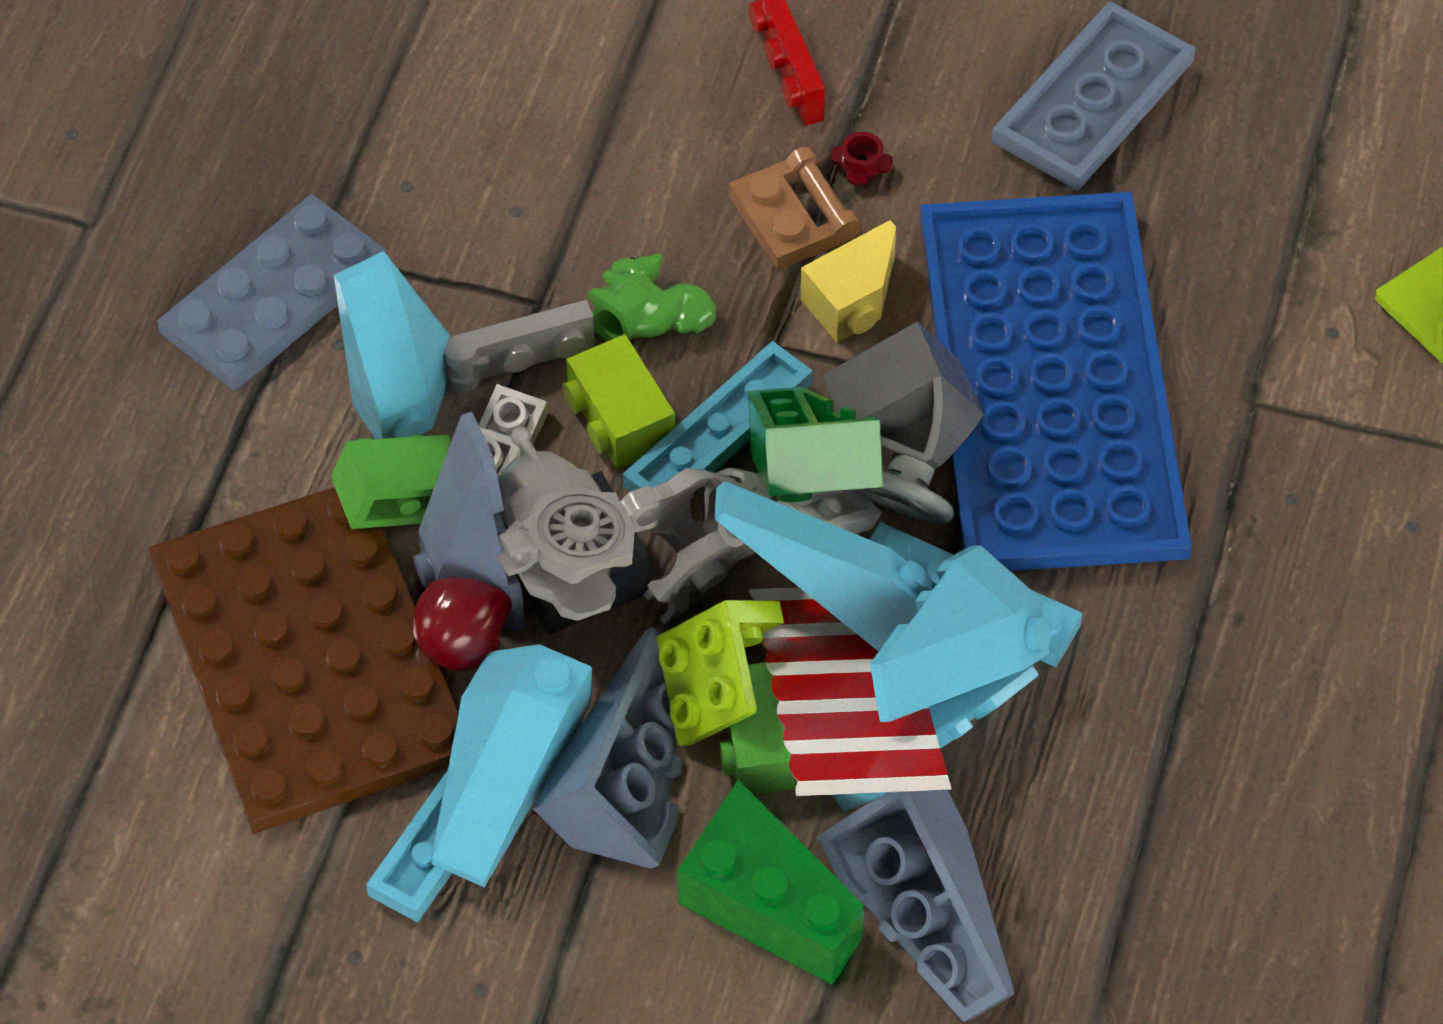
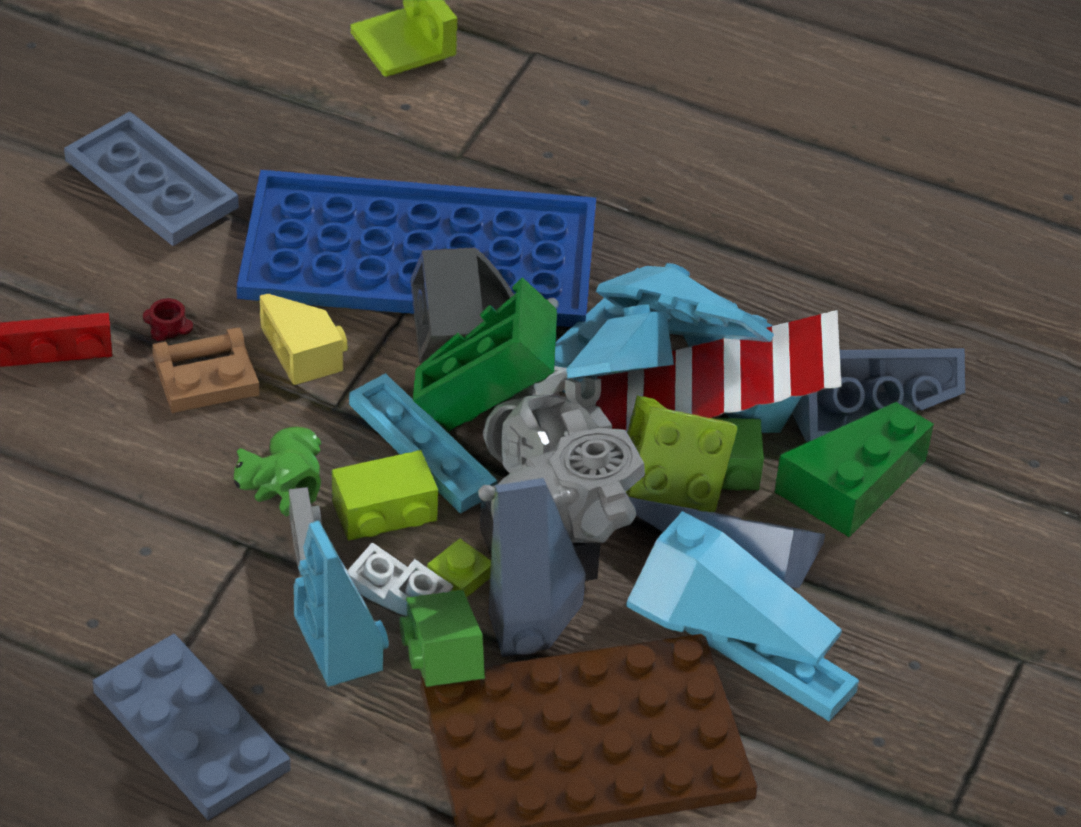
camera: 85 degrees left, 10 degrees down
(460, 621) = (595, 616): dark red hair -> none

